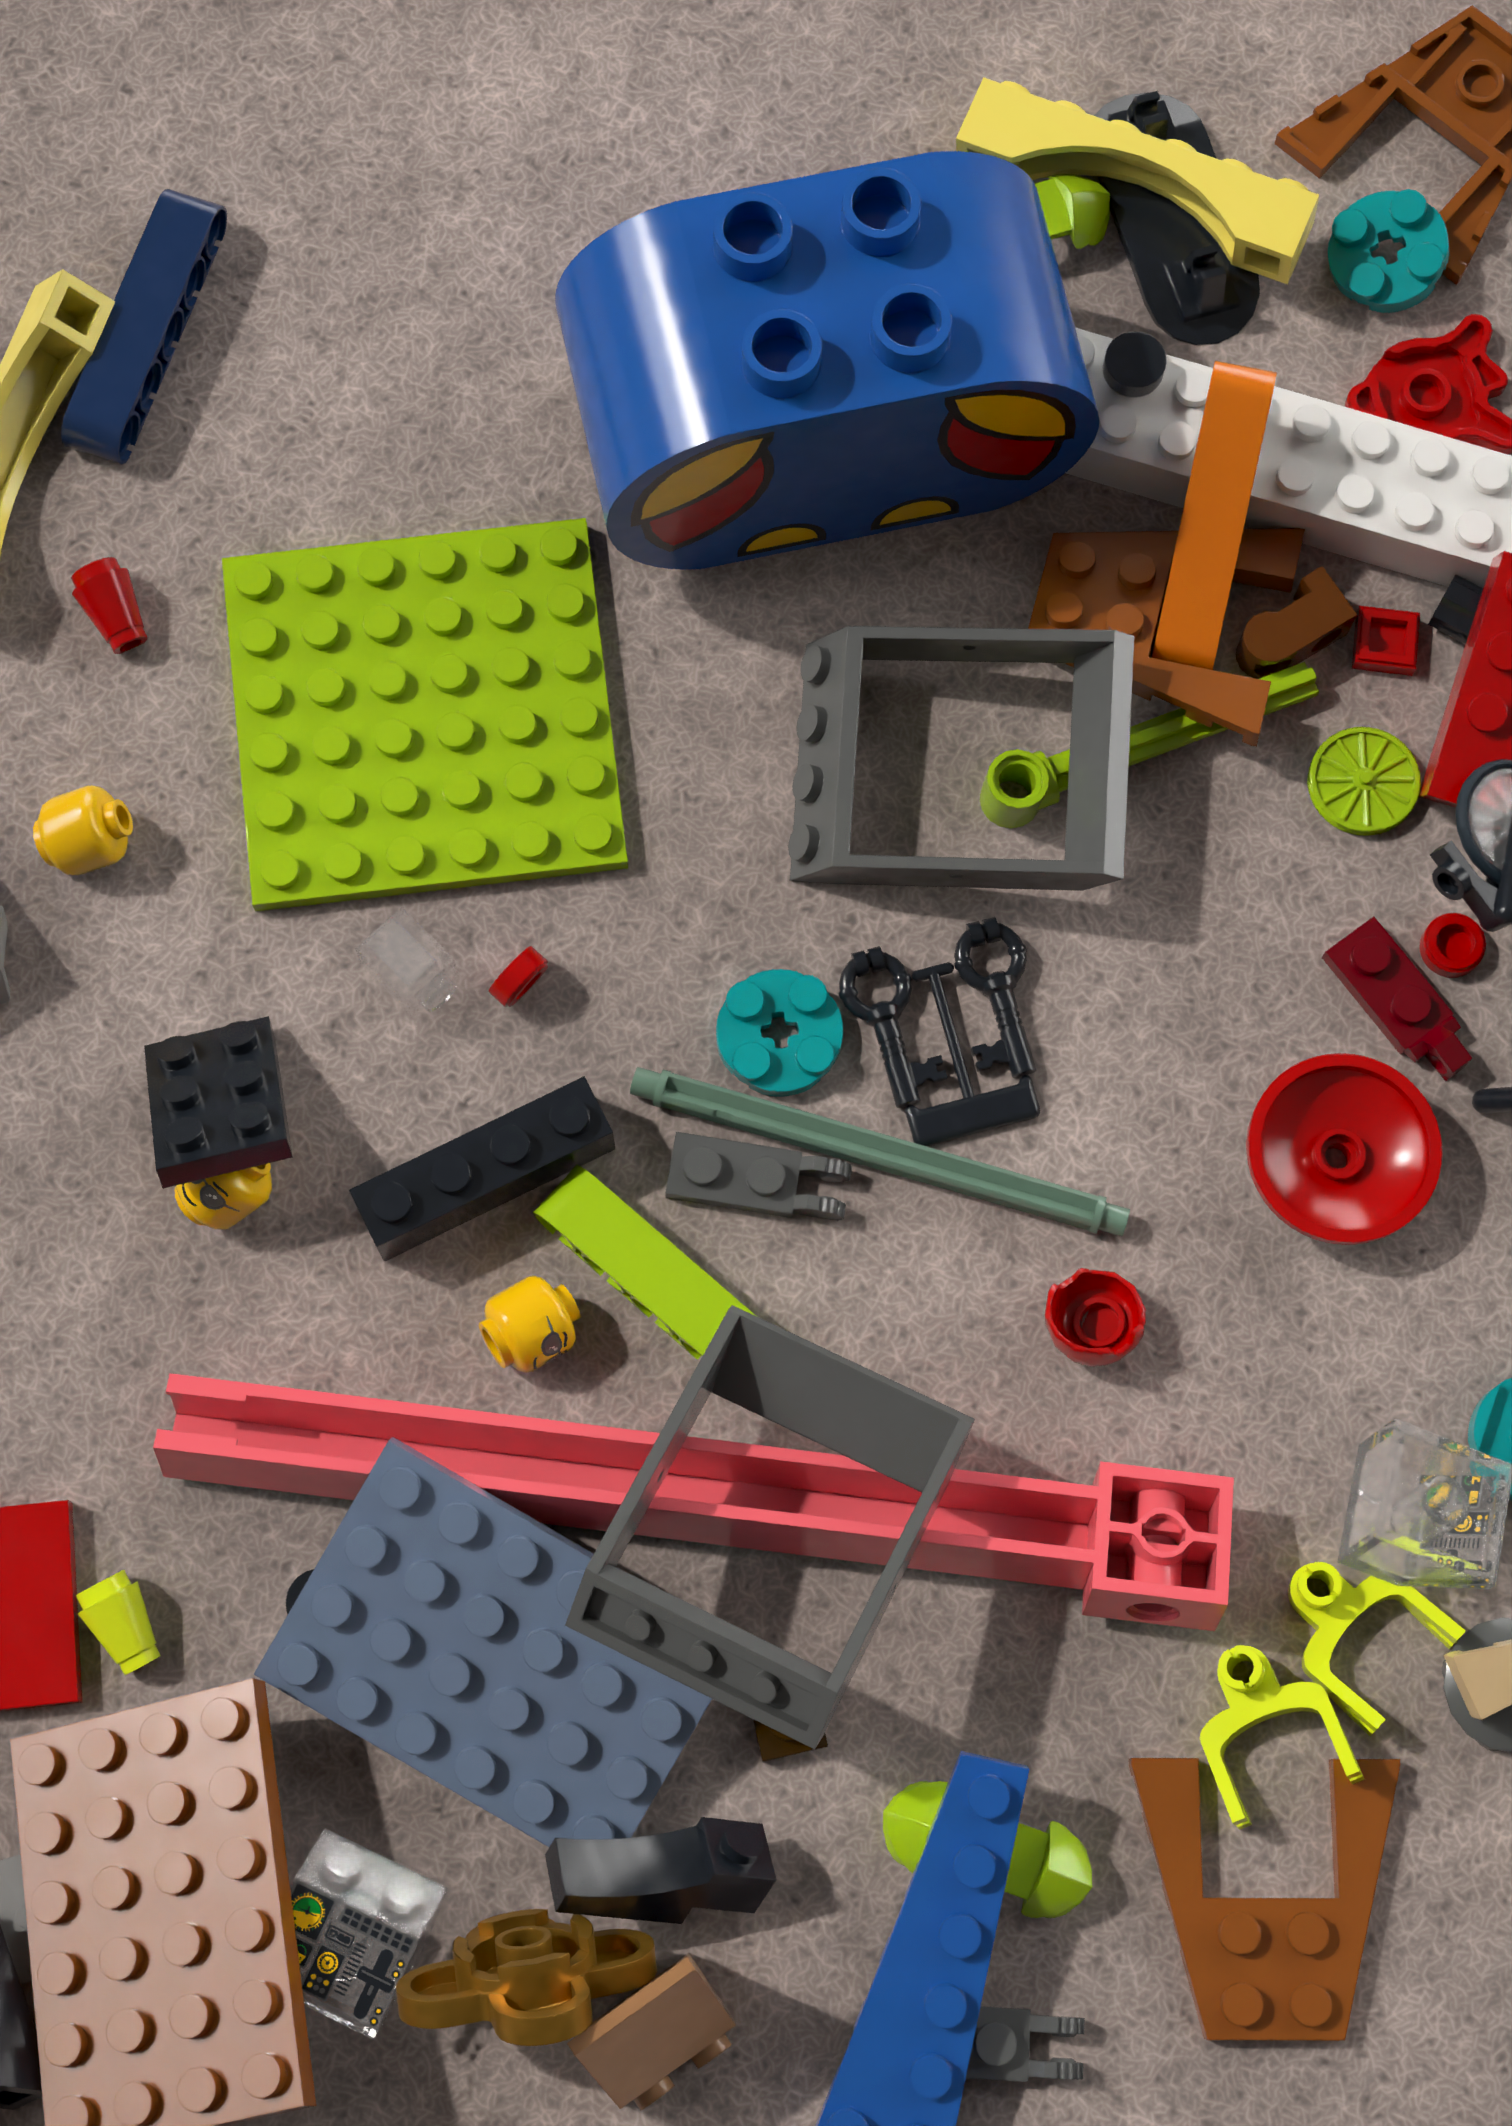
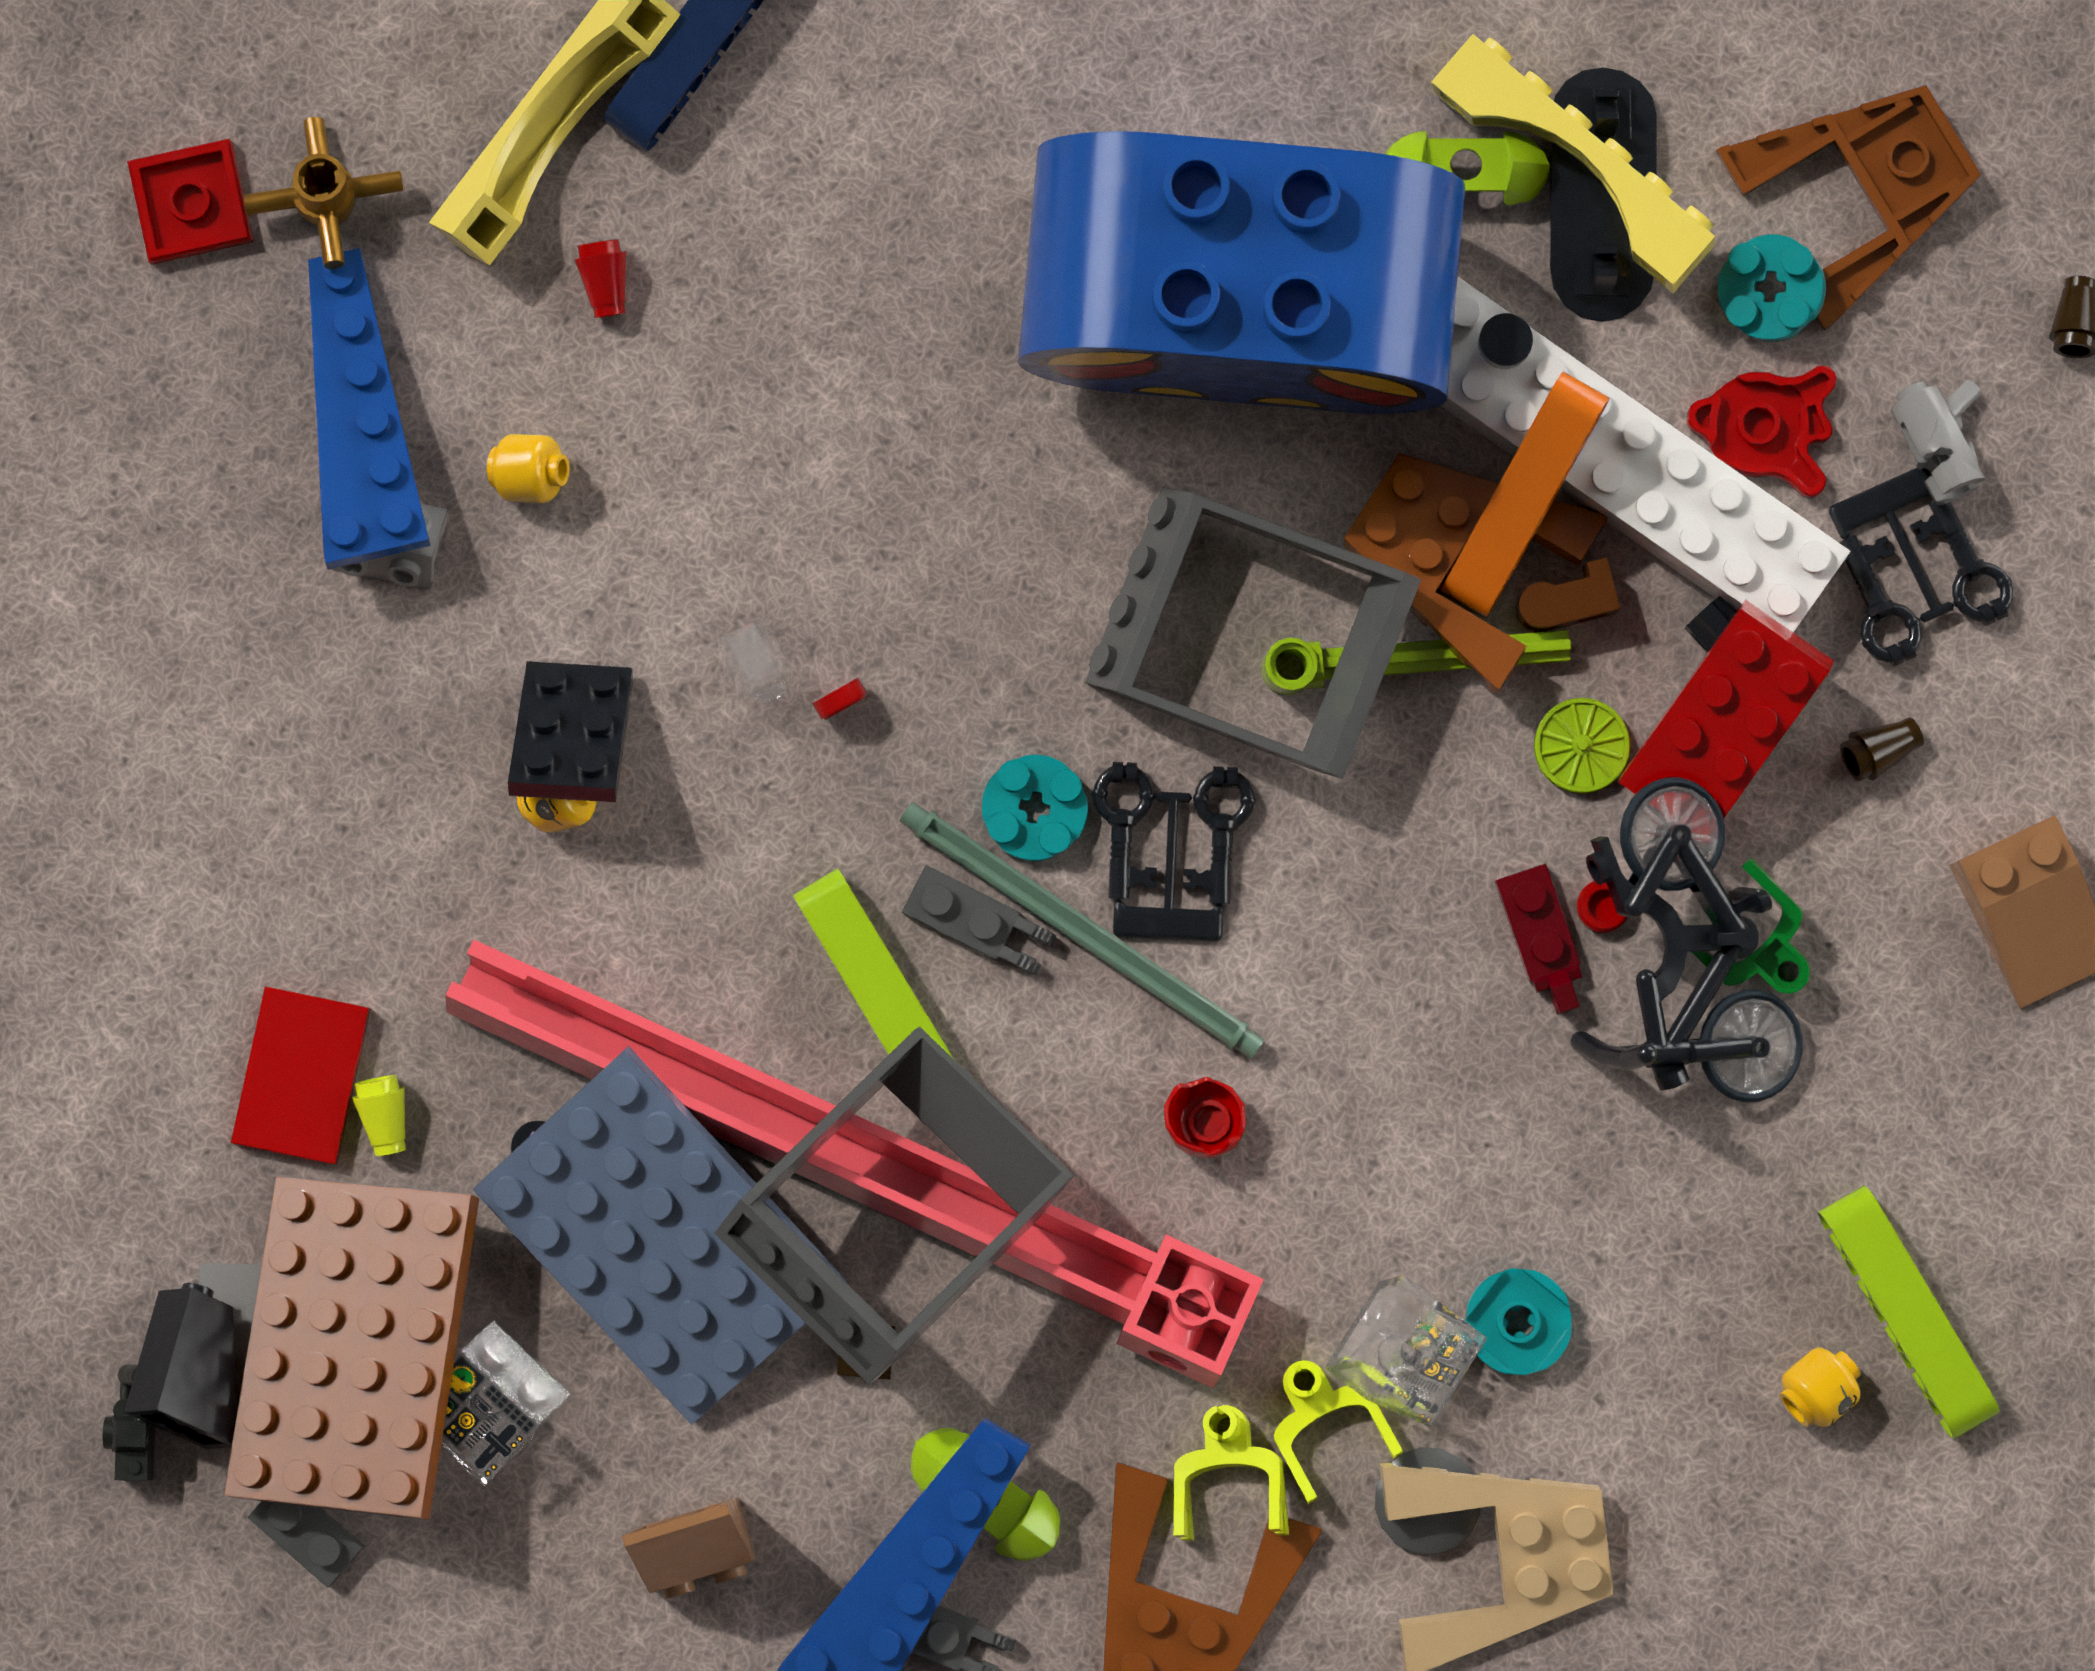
camera: 25 degrees right, 10 degrees up
(422, 714) = (831, 447): lime plate -> none
(483, 1168) = (763, 849): black brick -> none
(527, 1977) = (609, 1478): pearl gold plant -> none
(529, 1324) = (762, 983): yellow head -> none
(663, 1874) = (734, 1434): black slope -> none
(1367, 1115) = (1485, 1038): red dish -> none
(1386, 640) = (1644, 630): red tile -> none

